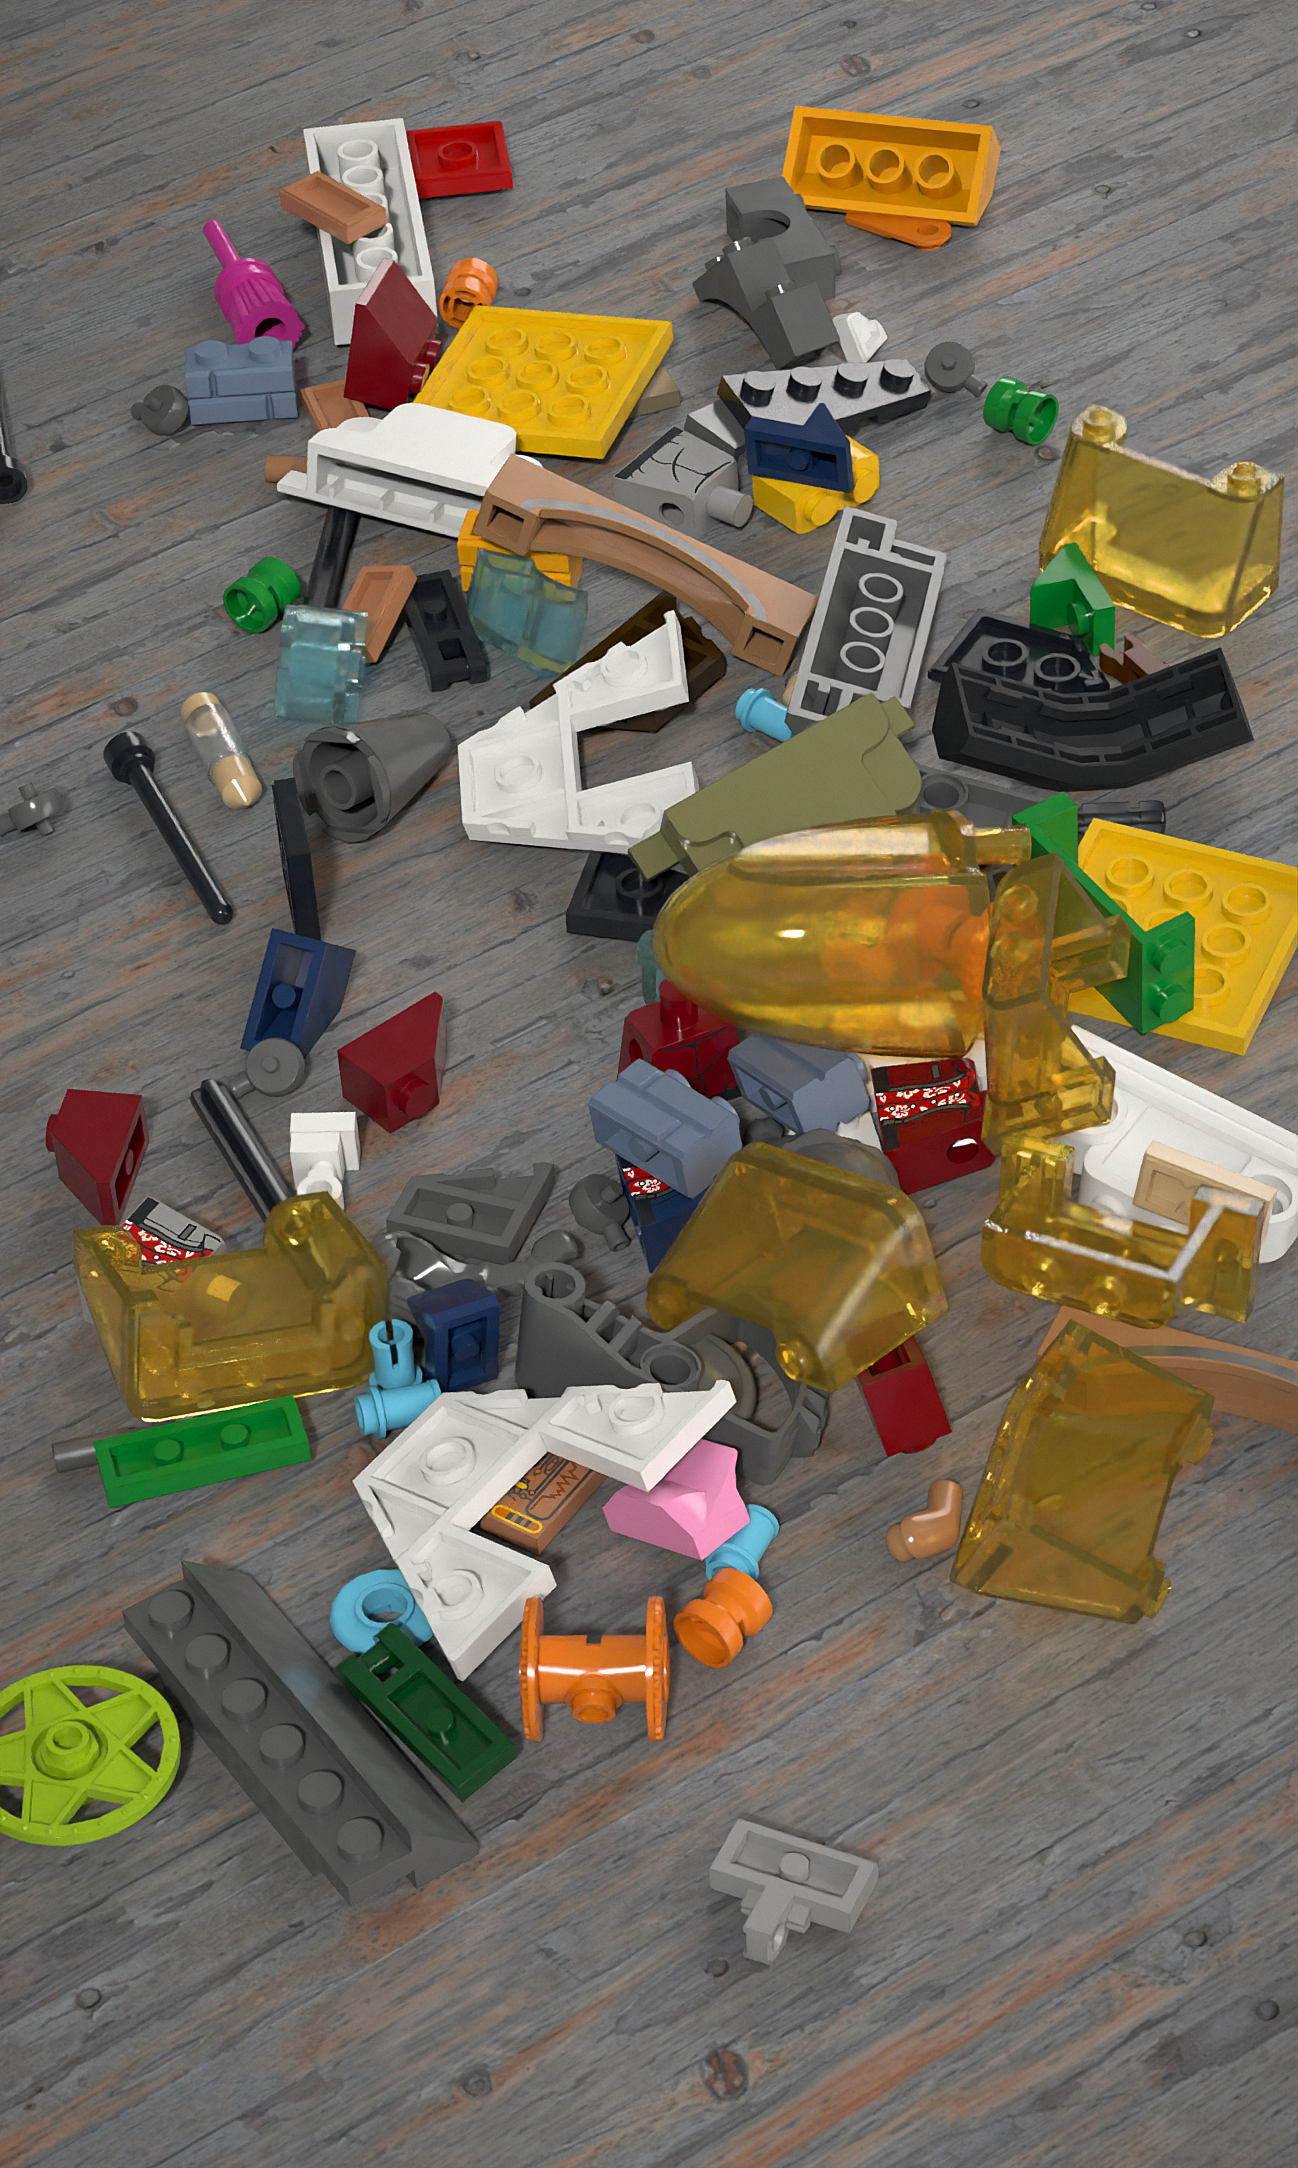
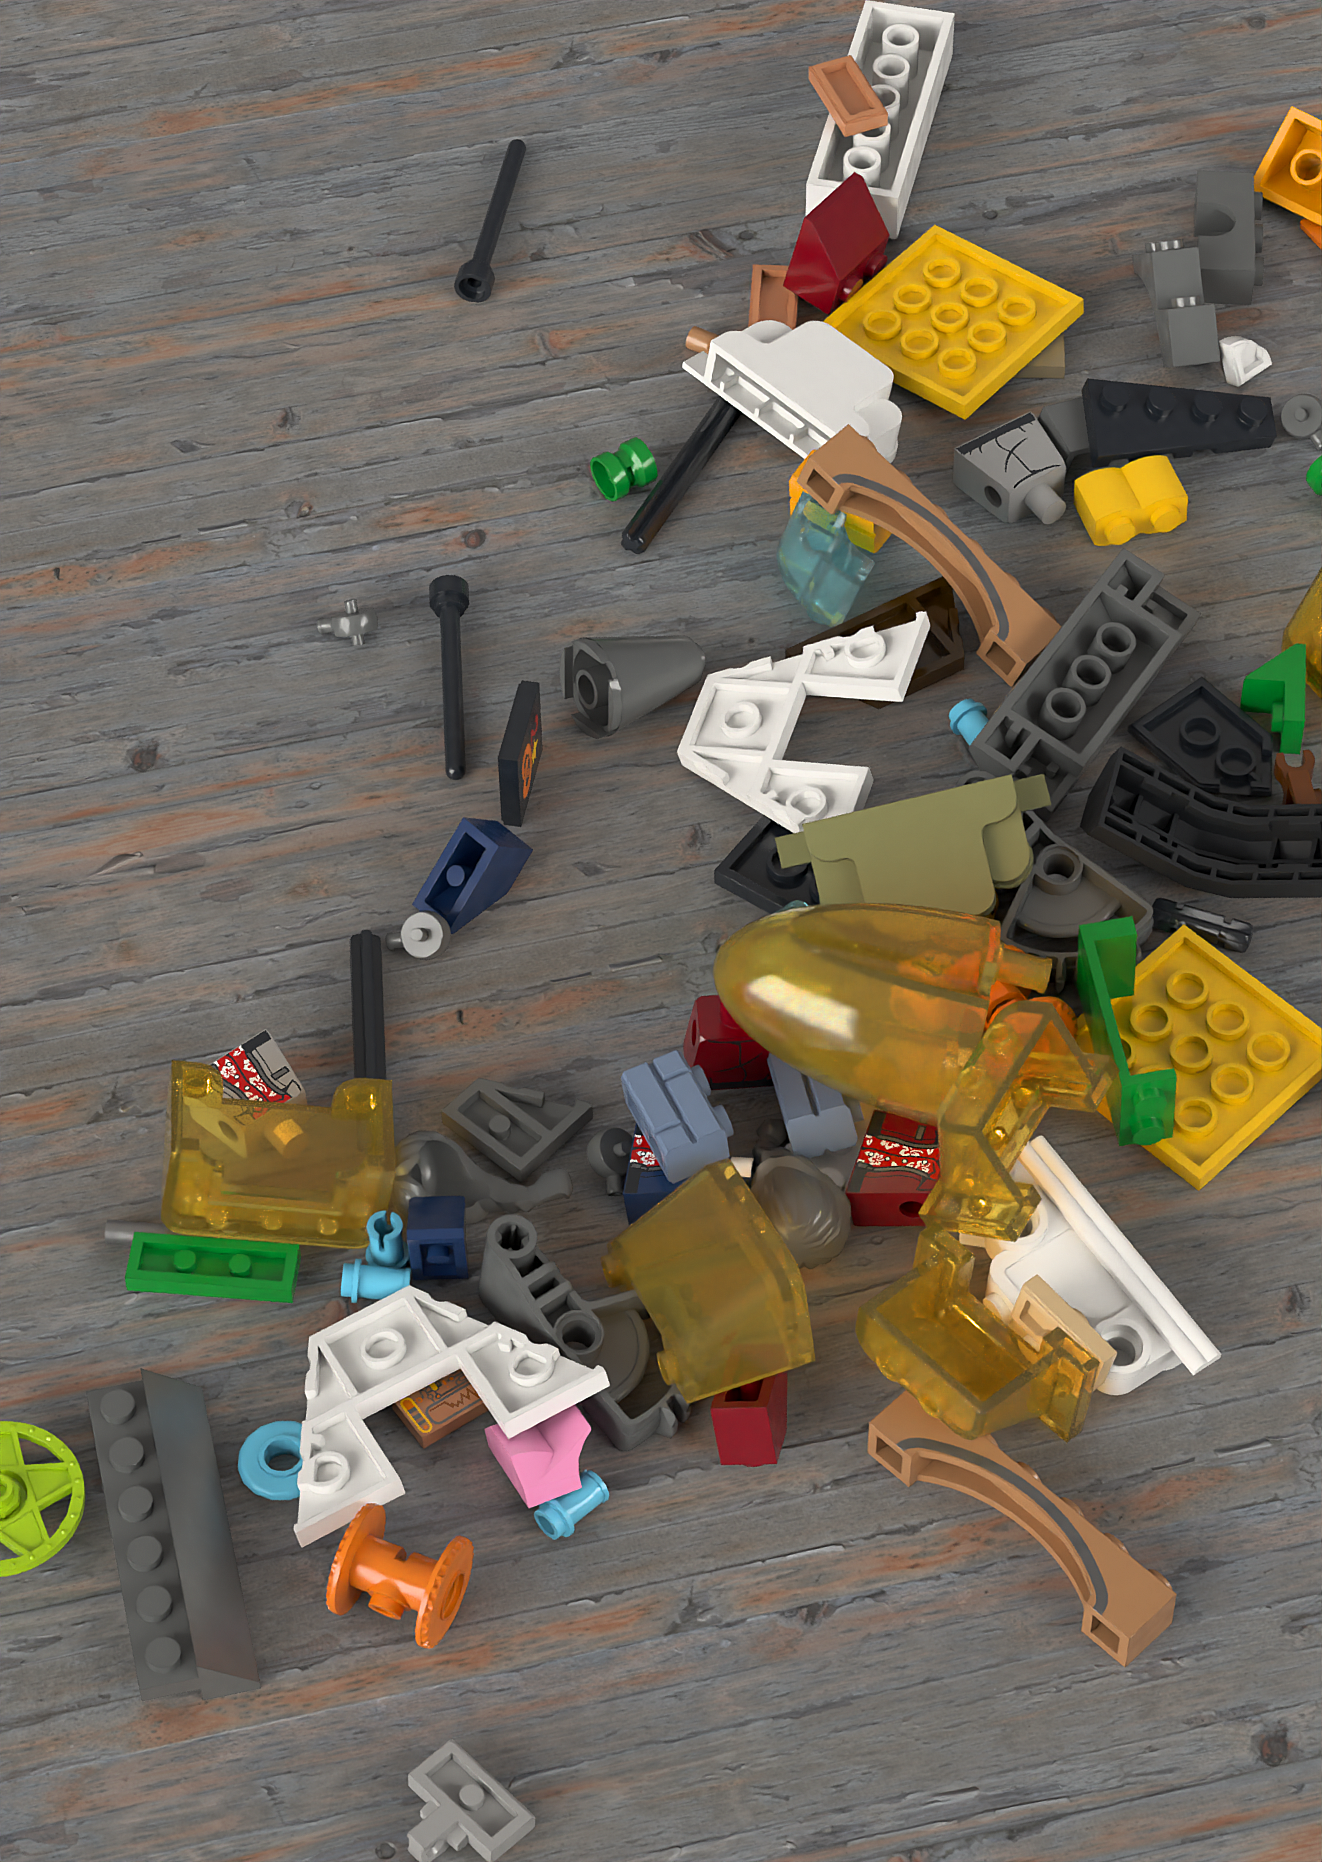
camera: 20 degrees right, 10 degrees up
(99, 1148) = (259, 966): dark red slope -> none
(162, 410) = (631, 250): dark grey piece -> none
(221, 750) = (523, 612): piece -> none
(241, 381) = (704, 245): sand blue brick -> none
(250, 293) = (753, 159): dark pink piece -> none
(321, 664) = (630, 561): clear light blue brick -> none
(323, 1150) = (420, 1032): white piece -> none
(383, 594) = (699, 518): nougat tile -> none
(398, 1065) = (522, 967): dark red slope -> none
(427, 1712) = (270, 1560): dark green plate -> none
(443, 632) = (752, 549): black plate -> none
(460, 159) = (997, 59): red plate -> none
(467, 285) = (939, 205): orange wheel -> none
(716, 1624) = (525, 1561): orange wheel -> none
(802, 454) = (1115, 483): dark blue slope -> none
(931, 1529) = (724, 1541): medium nougat arm -> none
(1083, 1482) = (853, 1550): clear yellow windscreen -> none

